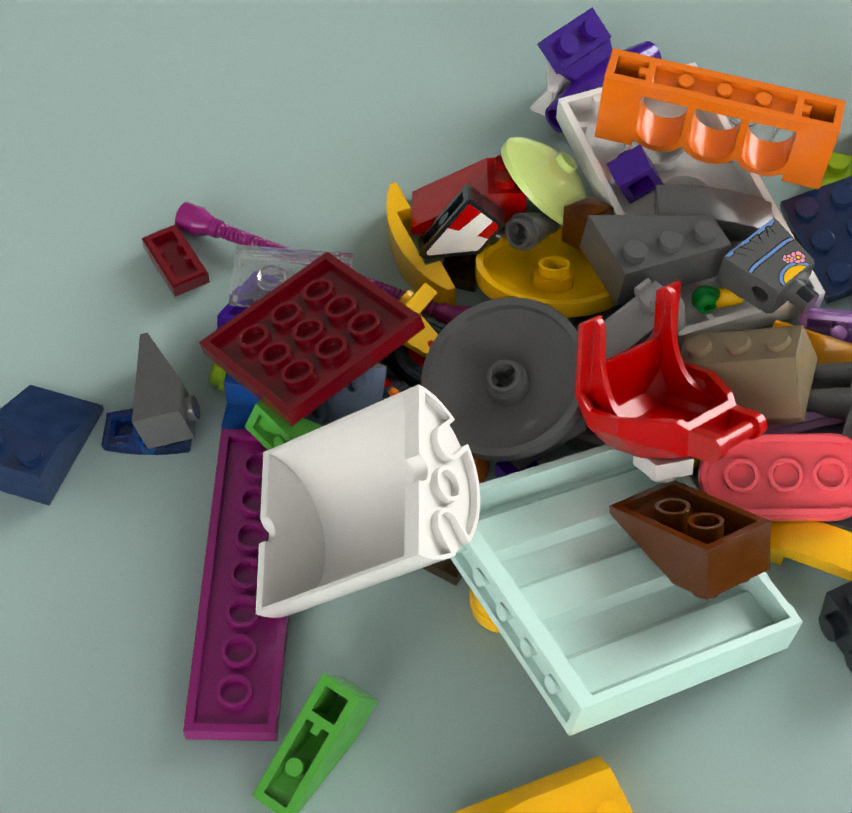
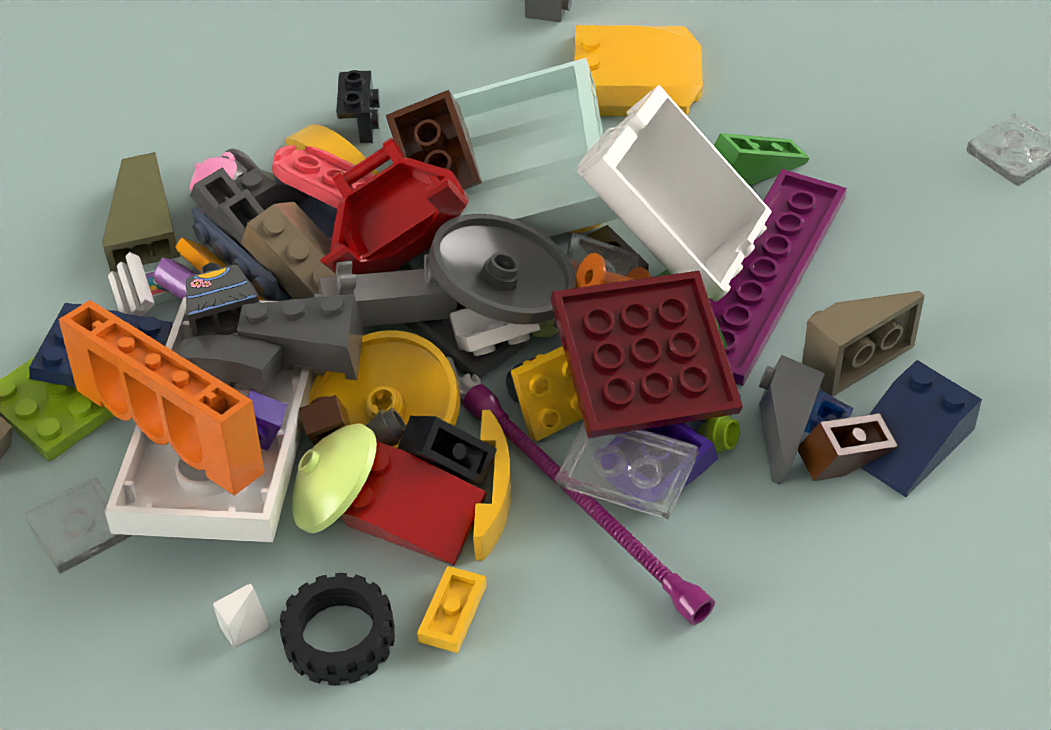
camera: 155 degrees left, 5 degrees down
(94, 382) = (845, 445): none -> reddish brown slope
(107, 492) = (860, 337): none -> dark tan slope
(175, 260) = (727, 564): dark red plate -> none
(389, 152) = (452, 609): none -> yellow plate
(477, 136) = (342, 664): none -> black tyre
(581, 55) = (183, 597): dark purple plate -> none

